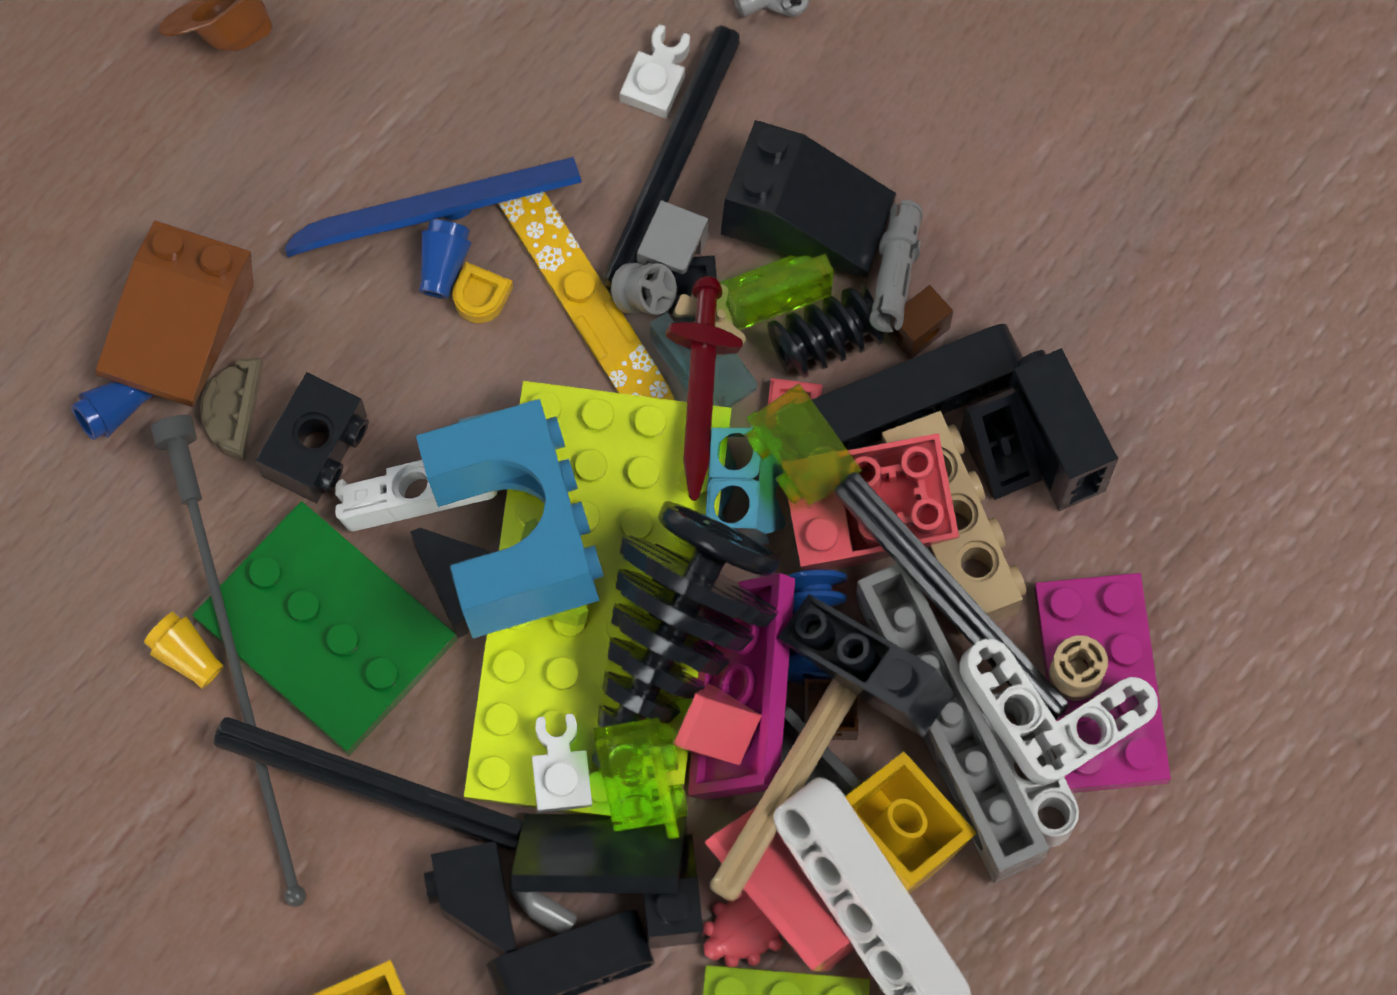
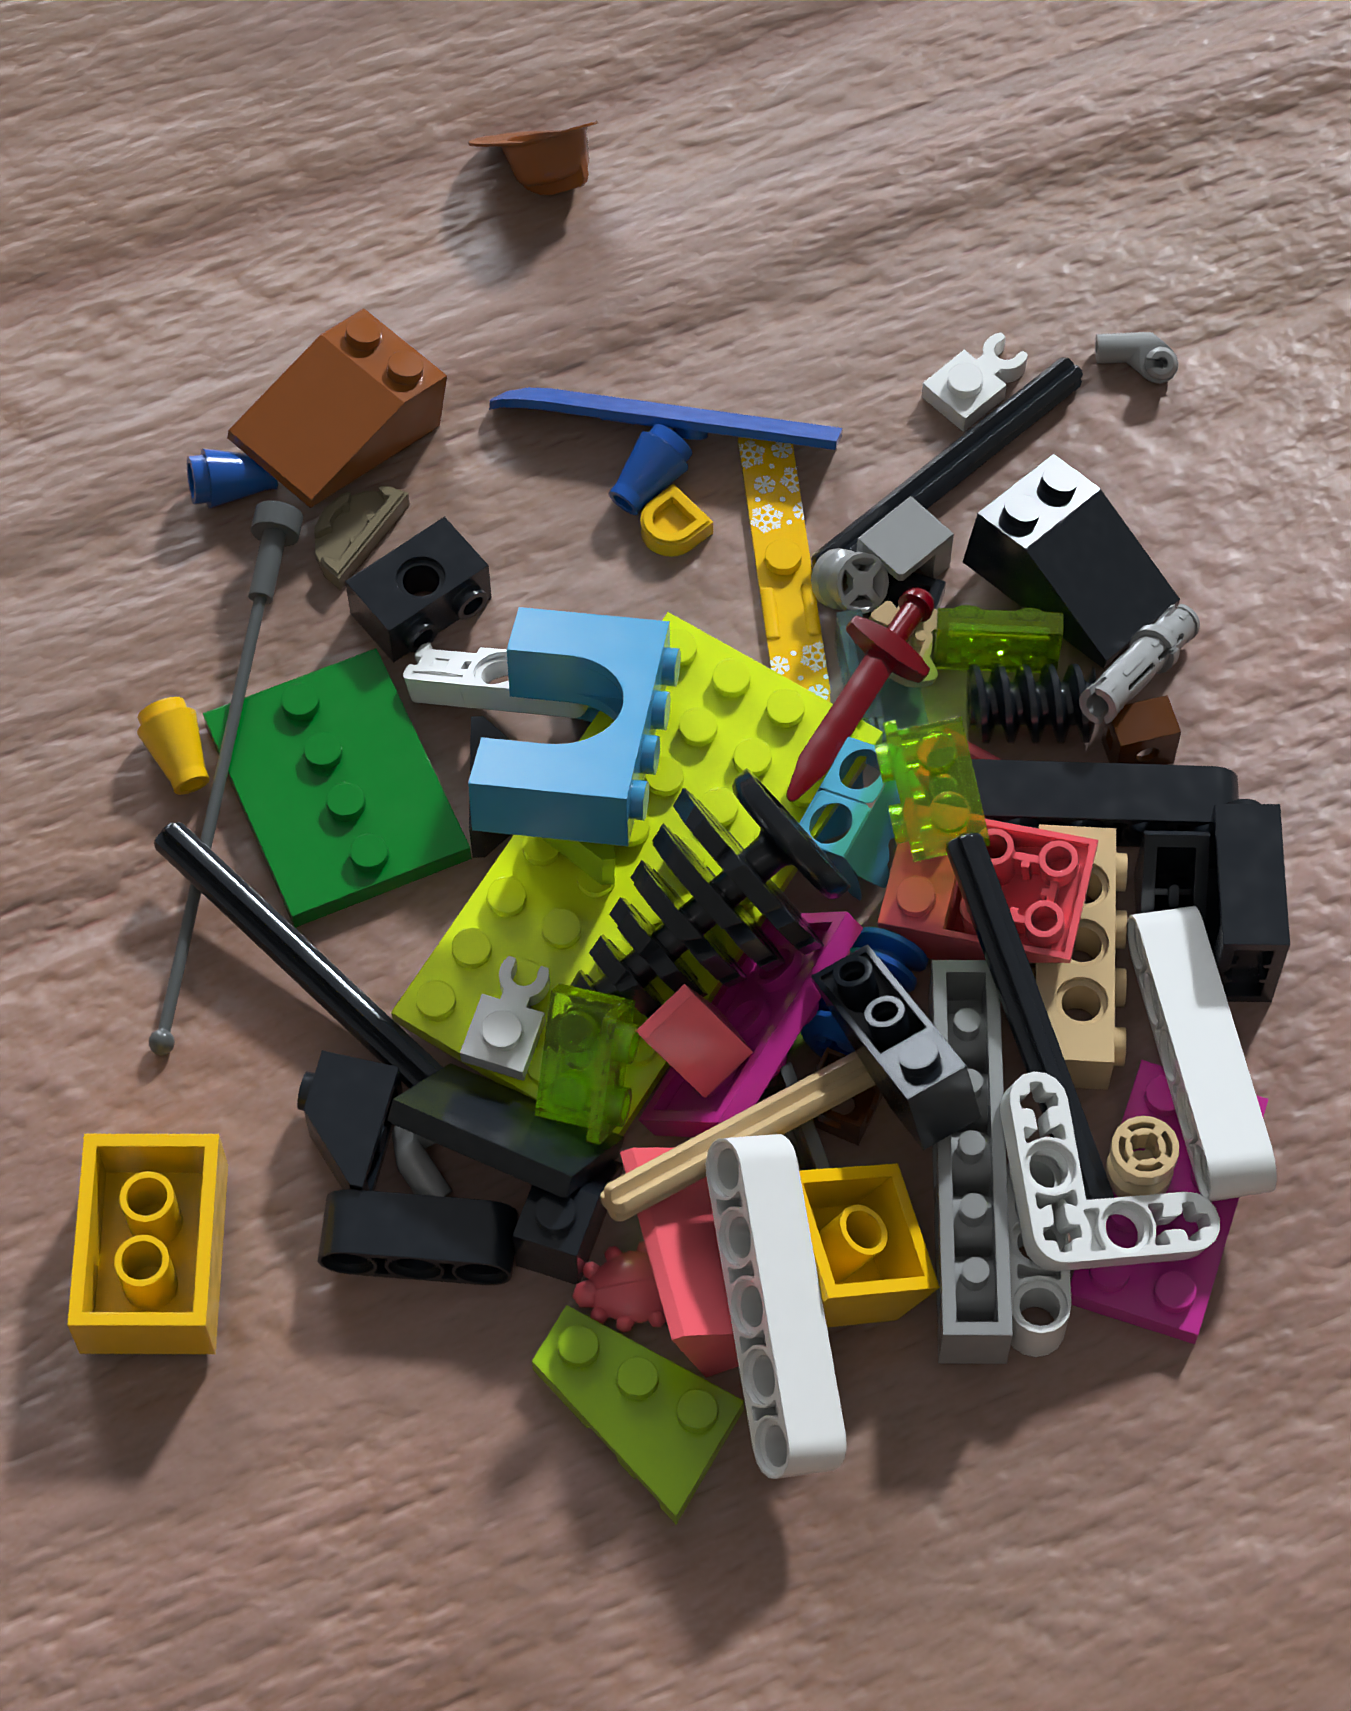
camera: 25 degrees right, 10 degrees down
(1082, 564) = (1201, 1054): none -> white beam

